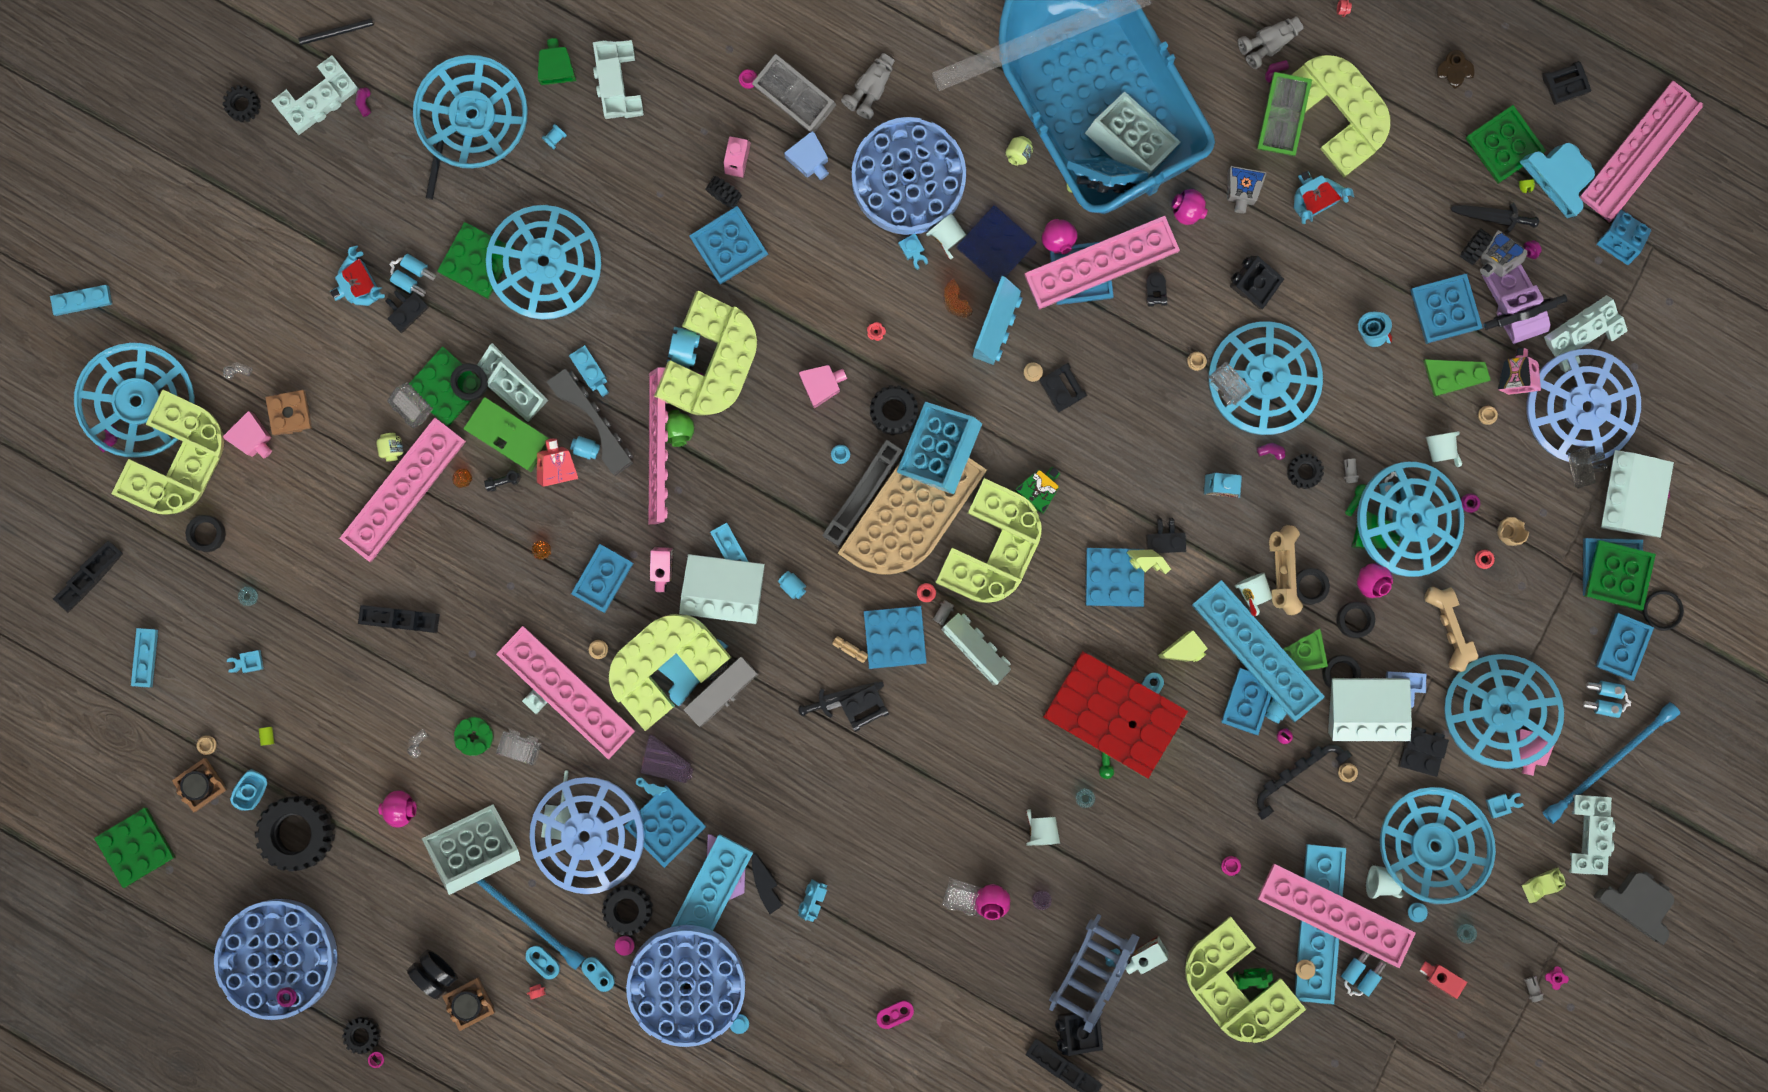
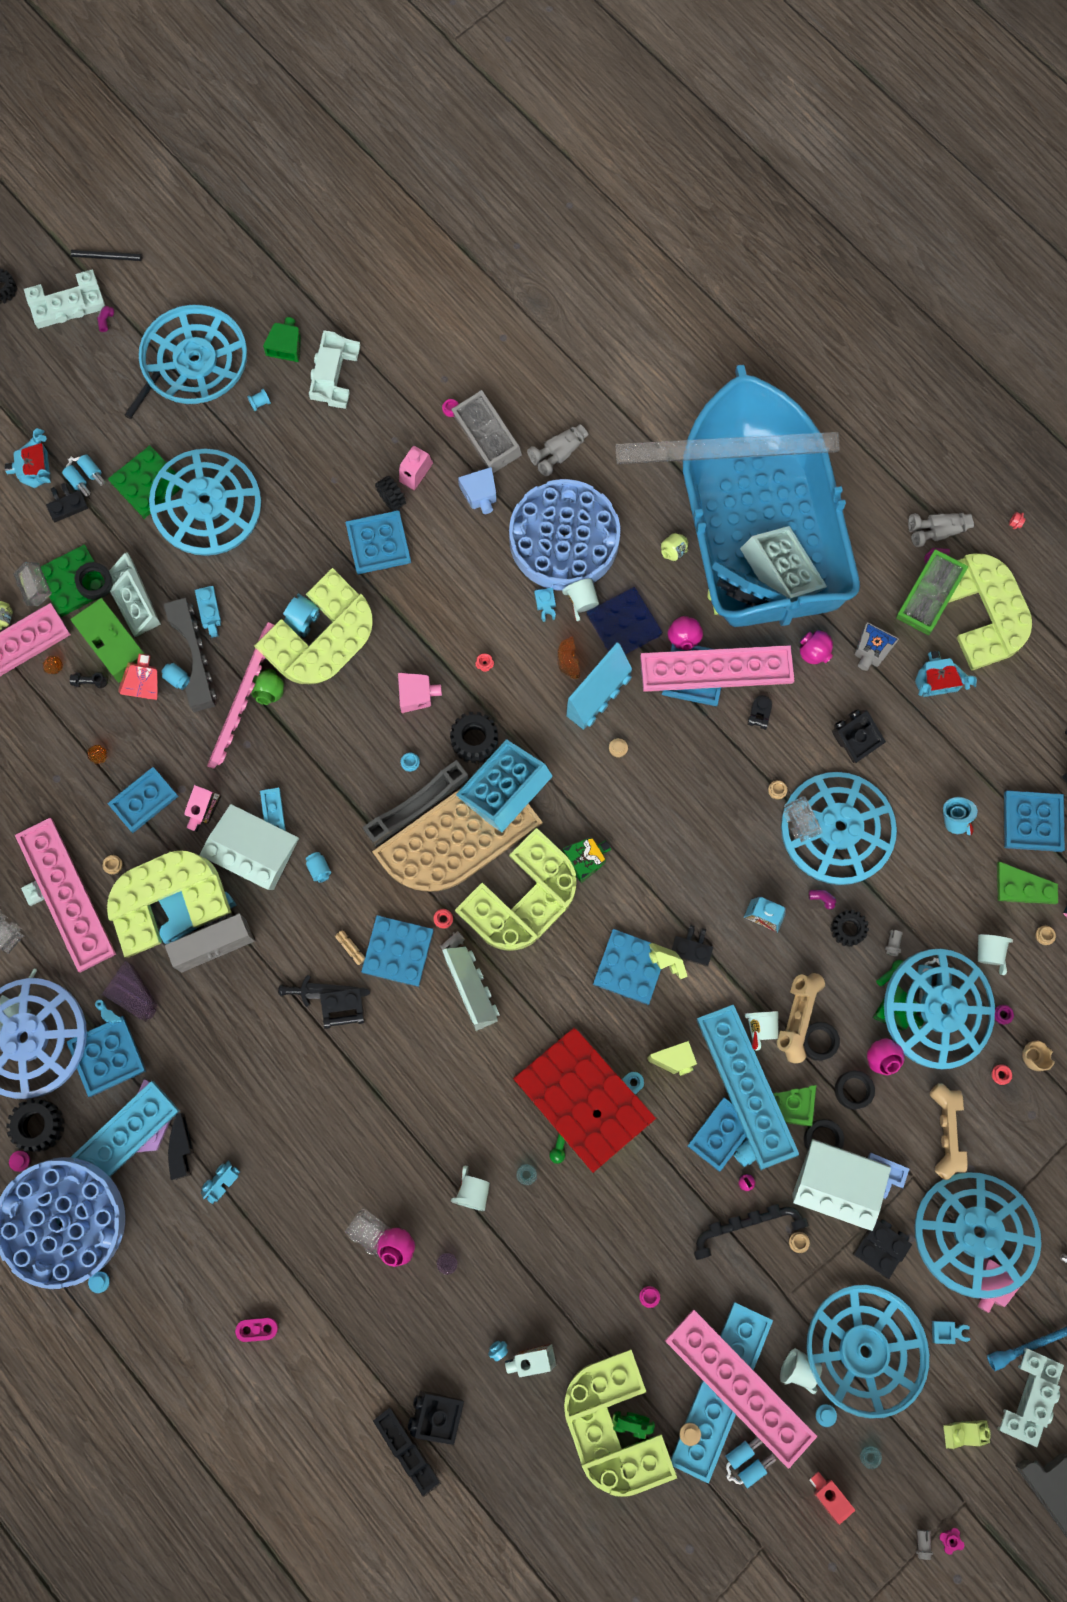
camera: 20 degrees right, 10 degrees down
(1058, 392) = (635, 772): black plate -> none
(1110, 978) = (487, 1371): sand blue fence -> none

